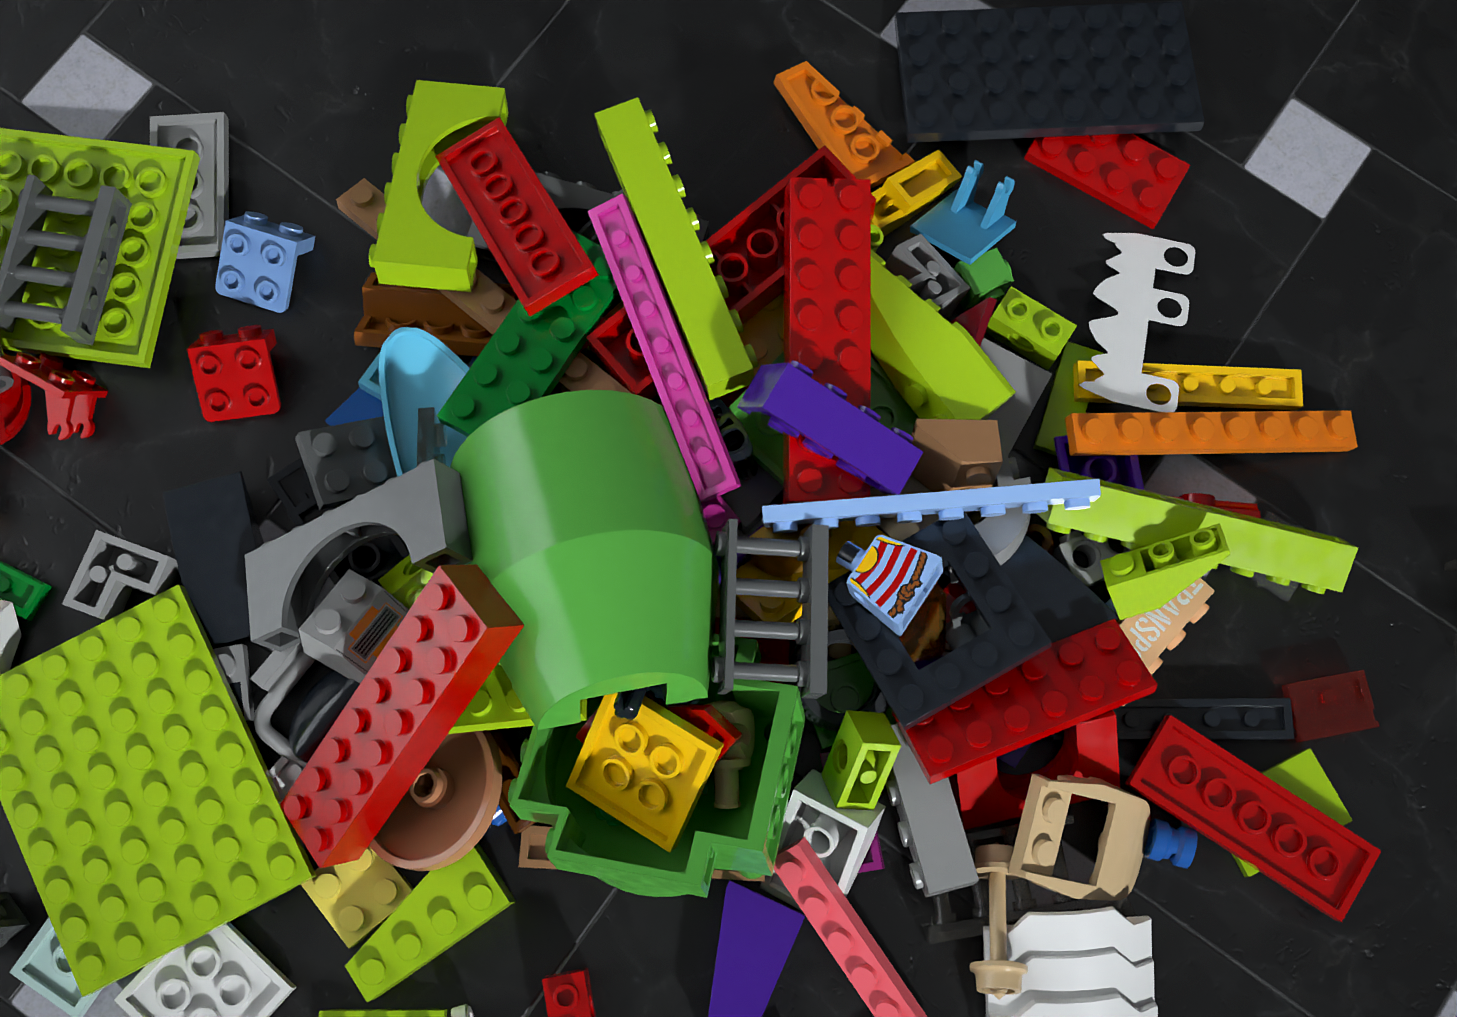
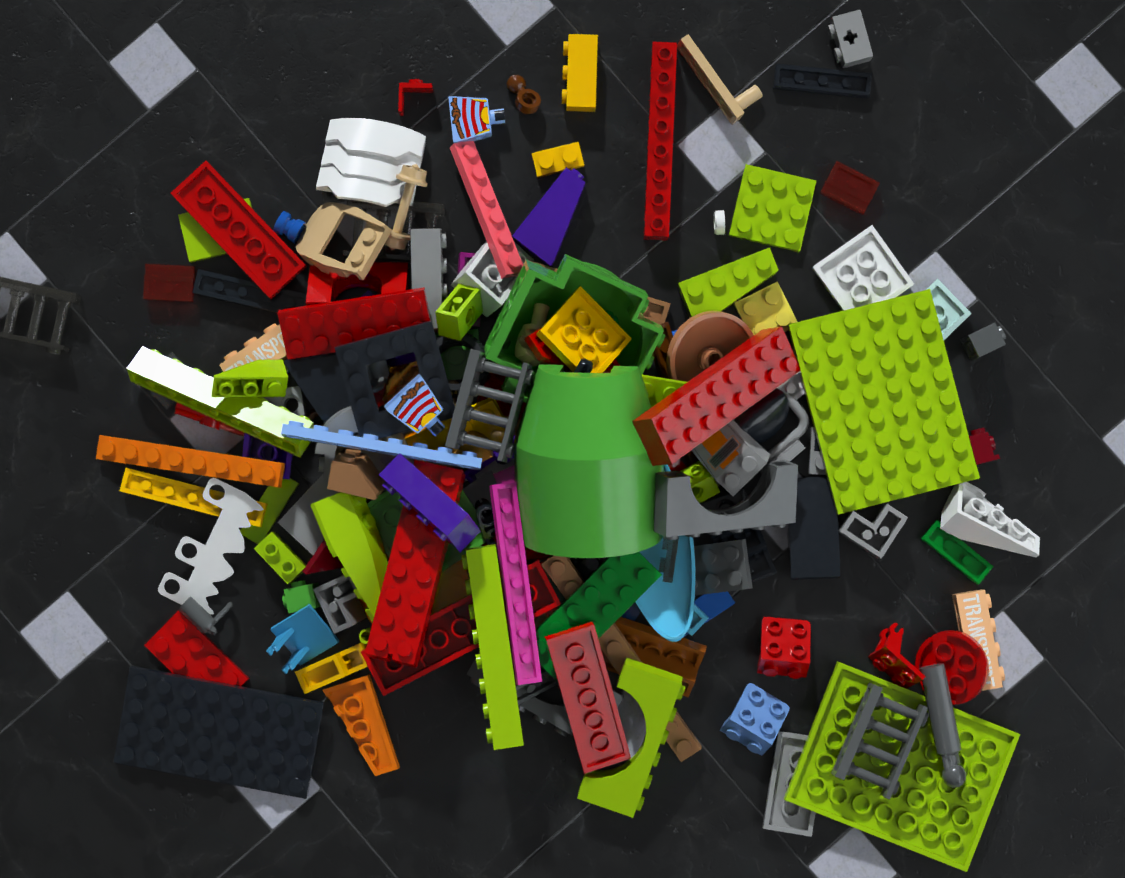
camera: 165 degrees left, 10 degrees up
(1121, 216) = (200, 617): none -> dark grey piece

